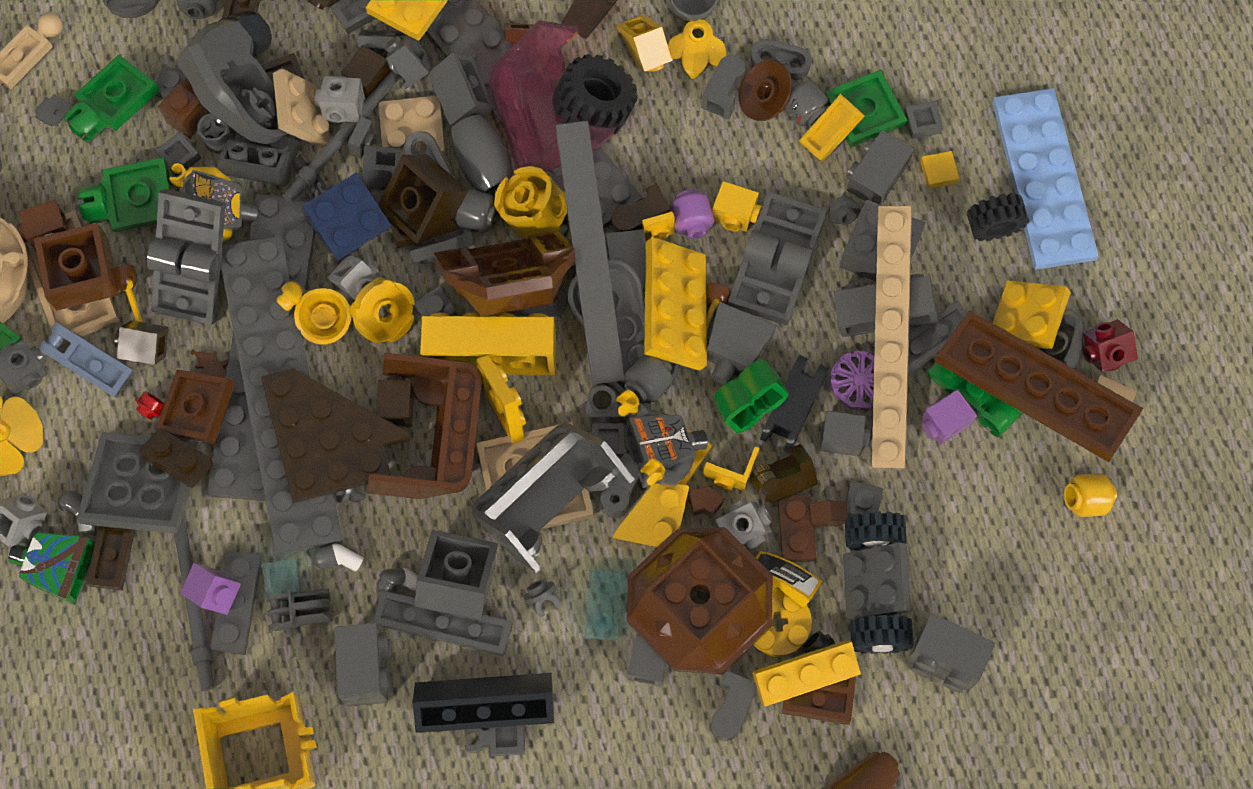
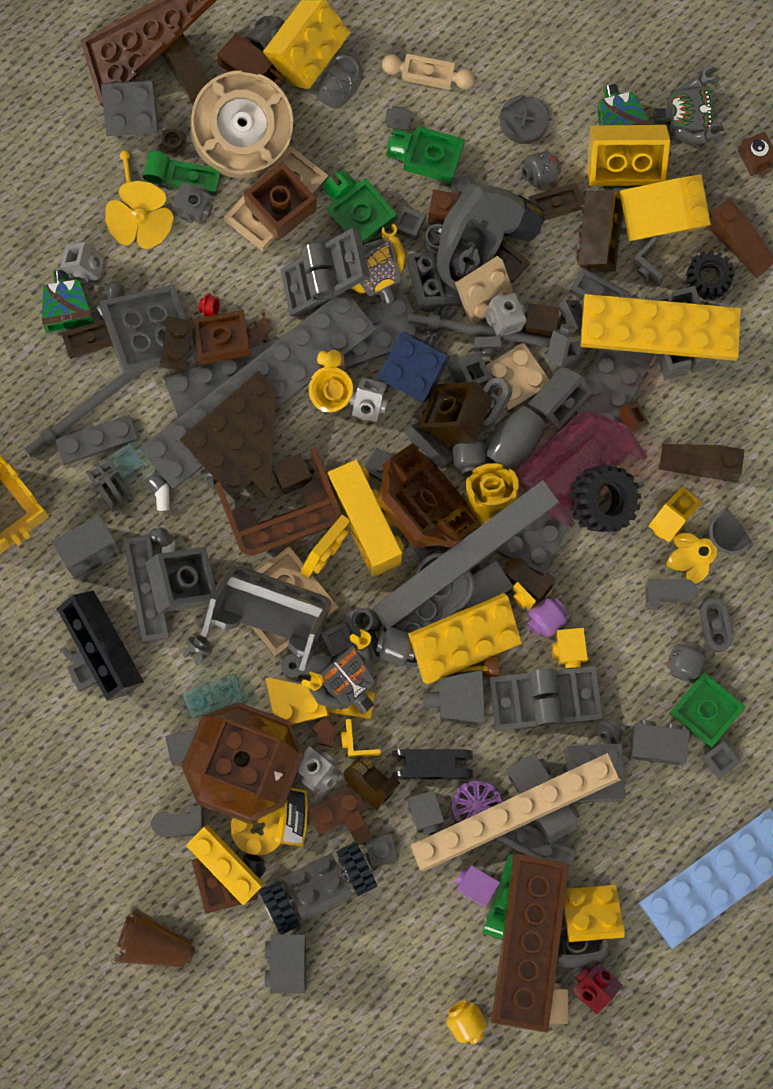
camera: 60 degrees right, 5 degrees up
(41, 221) = (303, 161): reddish brown brick -> none
(87, 360) = (220, 245): sand blue plate -> none
(126, 281) = (293, 239): reddish brown hinge -> none
(141, 342) = (251, 275): brick -> none
(210, 588) = (94, 417): medium lavender brick -> none
(367, 306) = (358, 417): yellow plate -> none
(750, 396) = (418, 728): green brick -> none
(756, 89) = (679, 625): reddish brown dish -> none
(831, 128) = (674, 691): yellow tile -> none
(939, 169) = (685, 791): yellow tile -> none
(997, 217) = (661, 853): black tyre -> none

